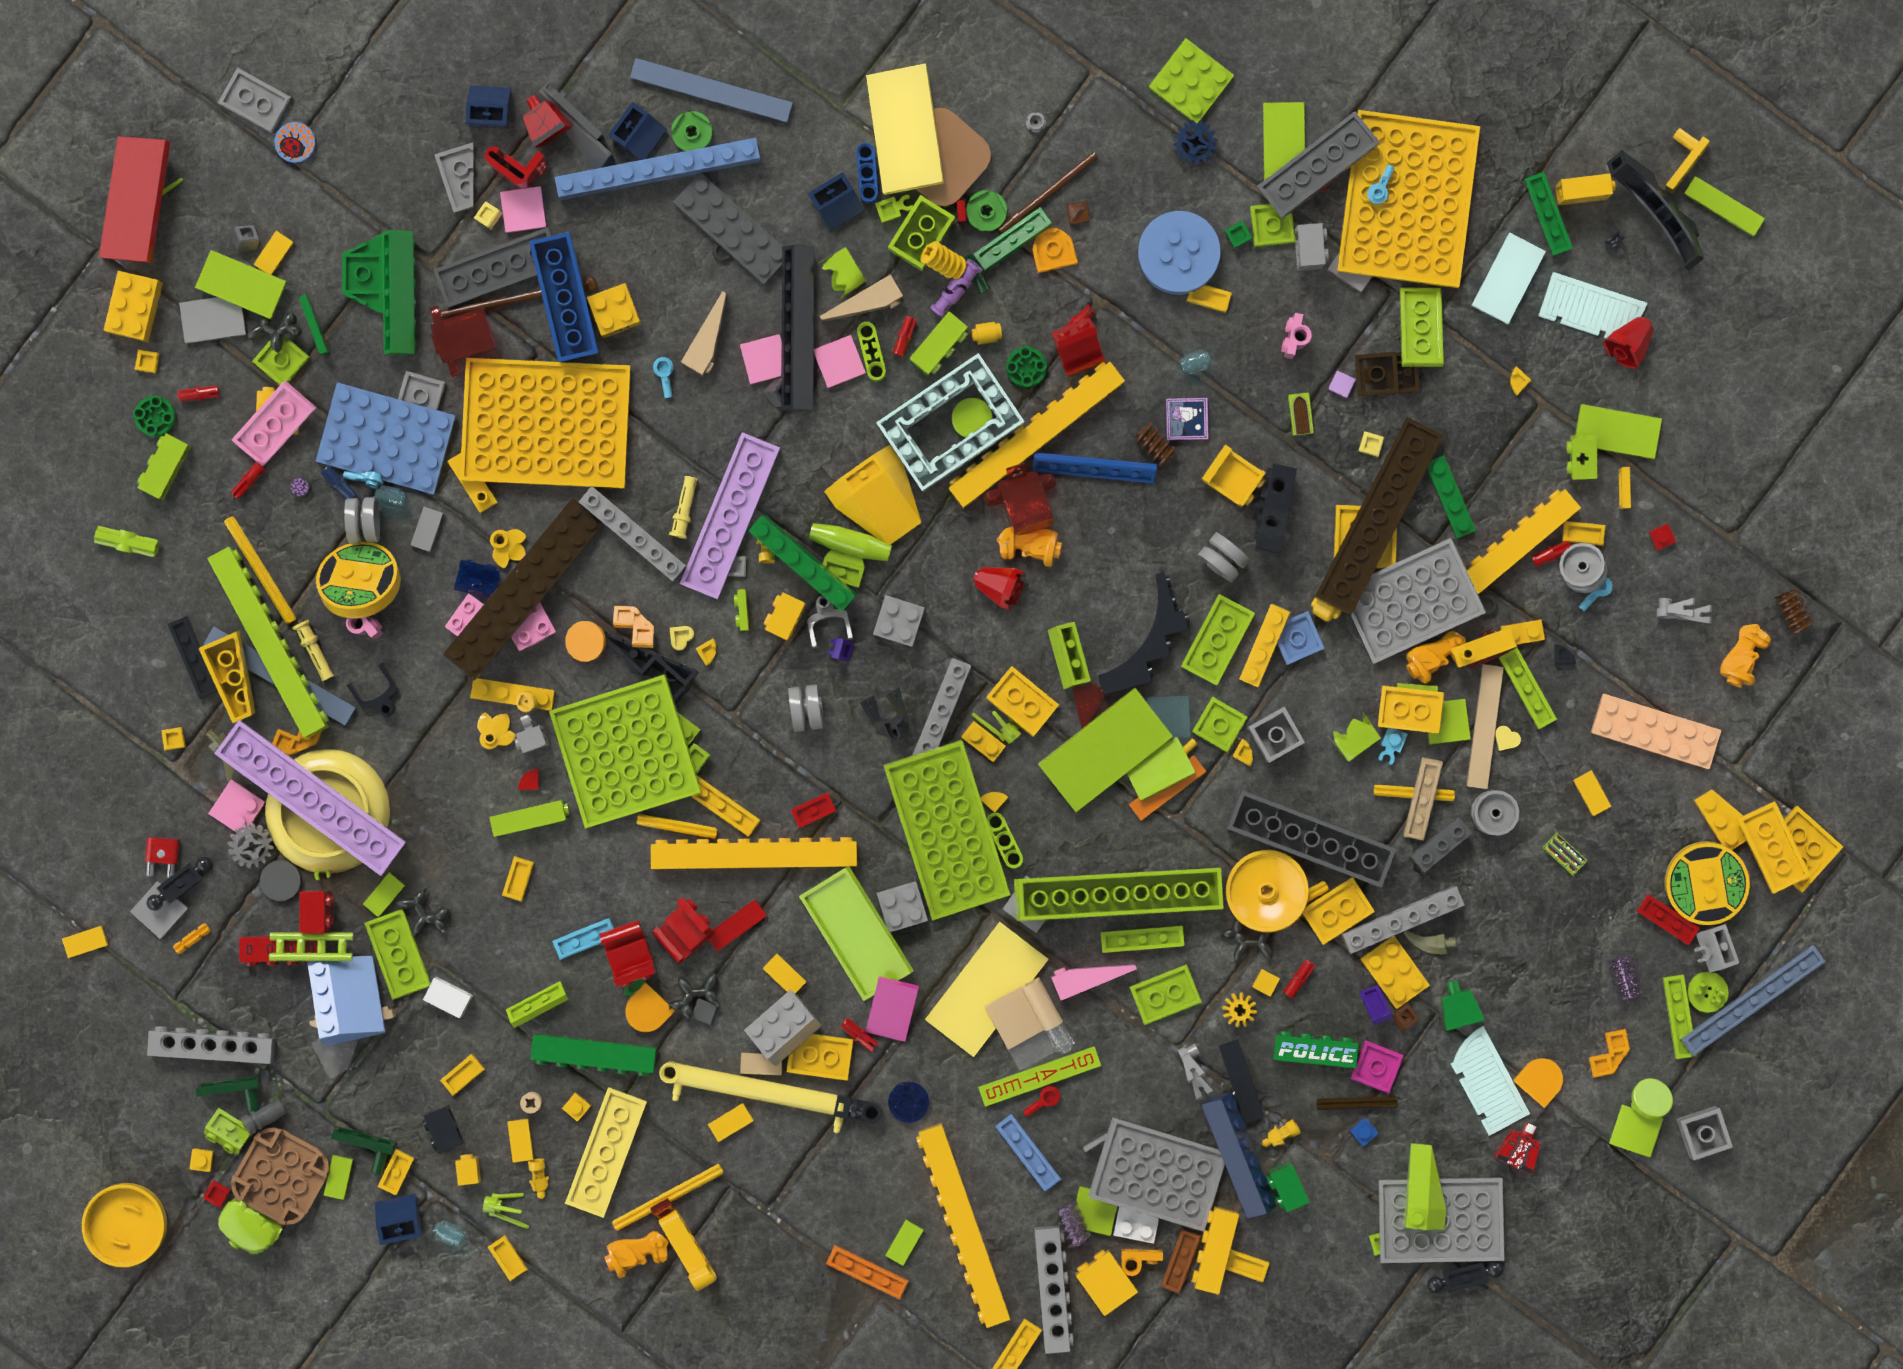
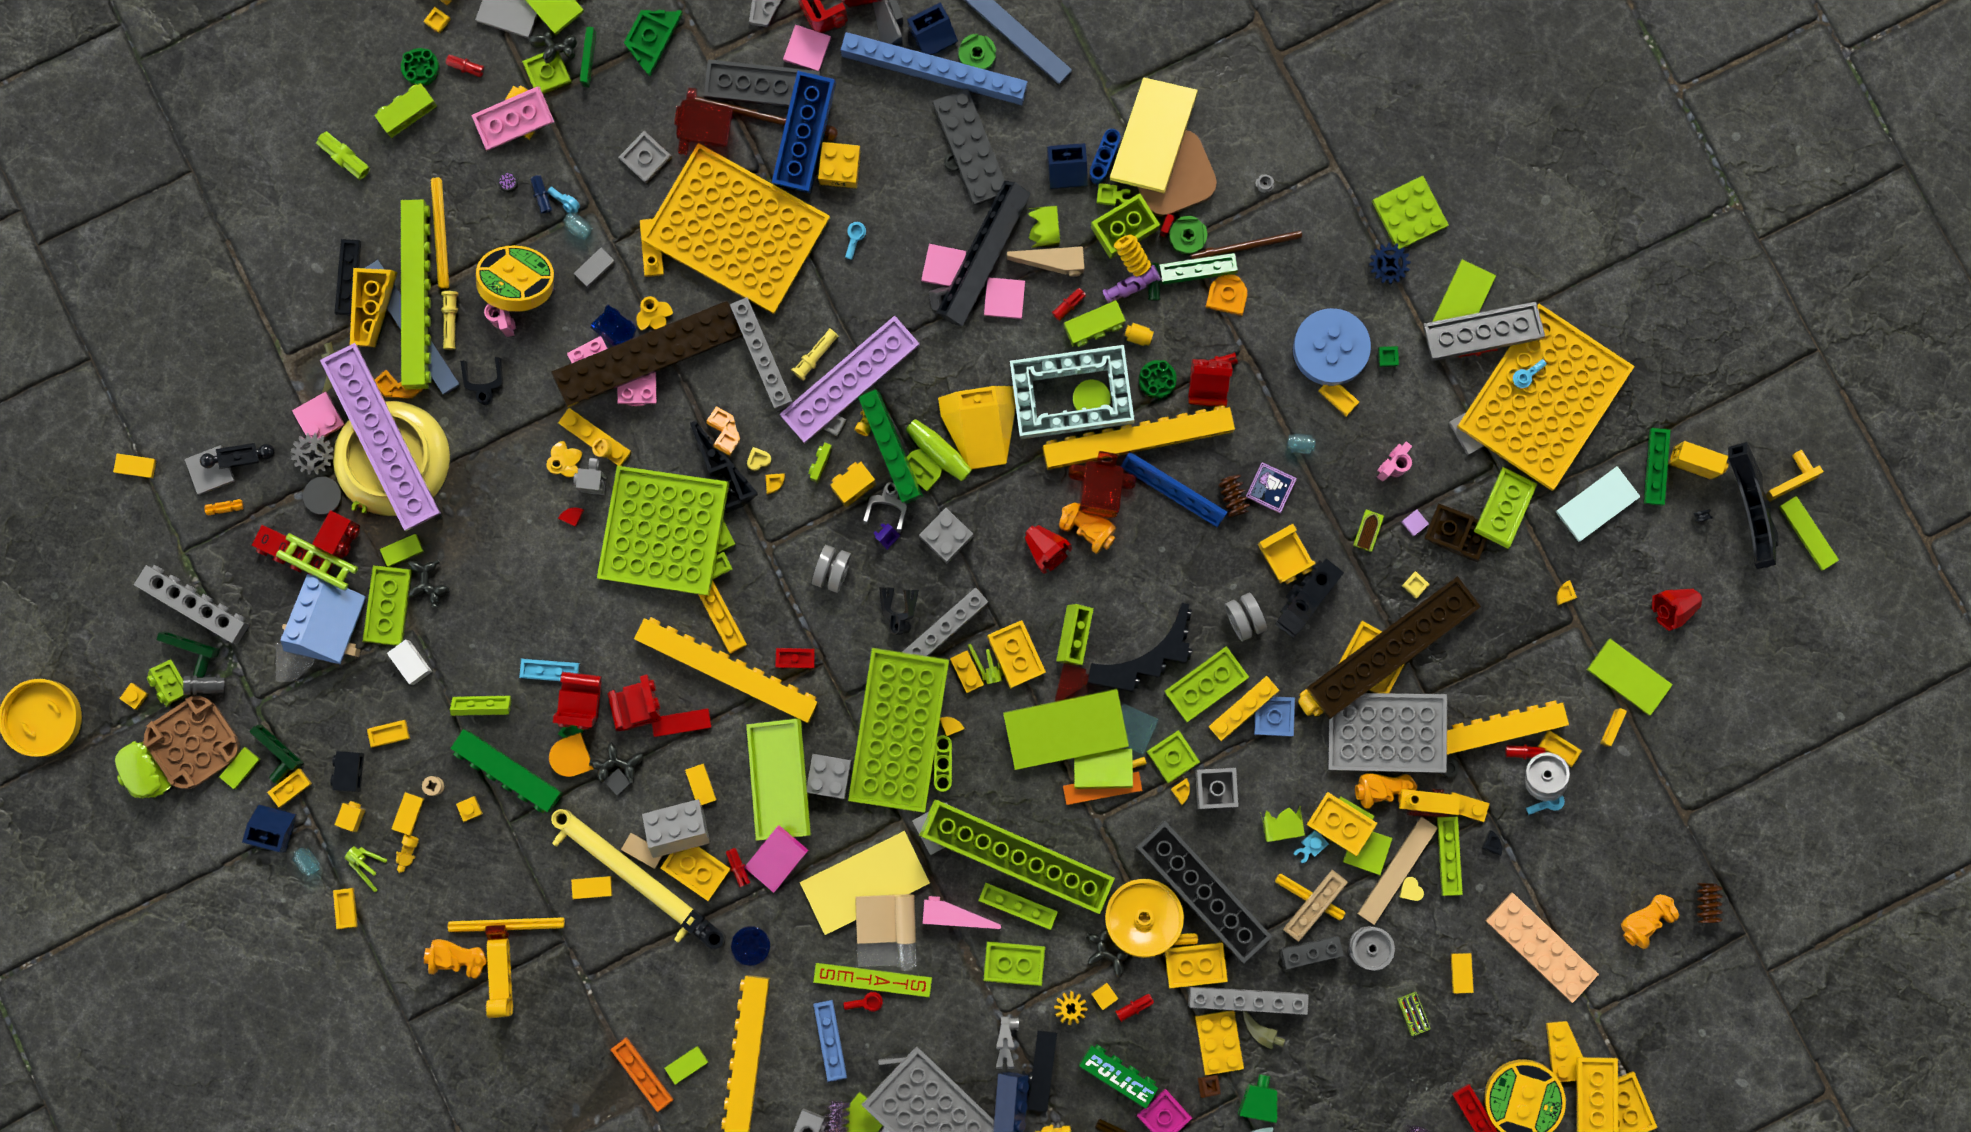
camera: 20 degrees right, 5 degrees down
(161, 851) = (237, 423): red piece -> none
(173, 738) = (296, 335): yellow tile -> none
(217, 1193) = (131, 731): red tile -> none
(248, 480) = (468, 155): red axle -> none
(362, 520) = (543, 231): light grey wheel -> none
(386, 437) = (600, 176): medium blue plate -> none
(398, 292) = (670, 64): green brick -> none
(488, 215) = (776, 38): light yellow tile -> none
(518, 878) = (519, 593): yellow tile -> none
(529, 818) = (554, 546): lime brick -> none
(585, 641) = (677, 423): light orange tile -> none
(606, 1152) = (473, 860): light yellow plate -> none
(677, 826) = (674, 614): yellow axle -> none
(703, 348) = (897, 231): tan slope -> none
(878, 355) = (1029, 305): lime beam -> none
(1077, 213) = (1263, 274): reddish brown tile -> none
(1270, 228) = (1417, 364): lime tile -> none
(1310, 247) = (1444, 395): light grey brick -> none
(1376, 1005) = (1189, 1062): dark purple tile -> none
(1450, 497) = (1461, 662): green plate -> none
(1588, 306) = (1654, 560): light aqua piece -> none
(1588, 467) = (1591, 693): lime brick -> none
(1662, 537) = (1625, 784): red plate -> none
(1677, 610) = (1610, 853): light grey piece -> none

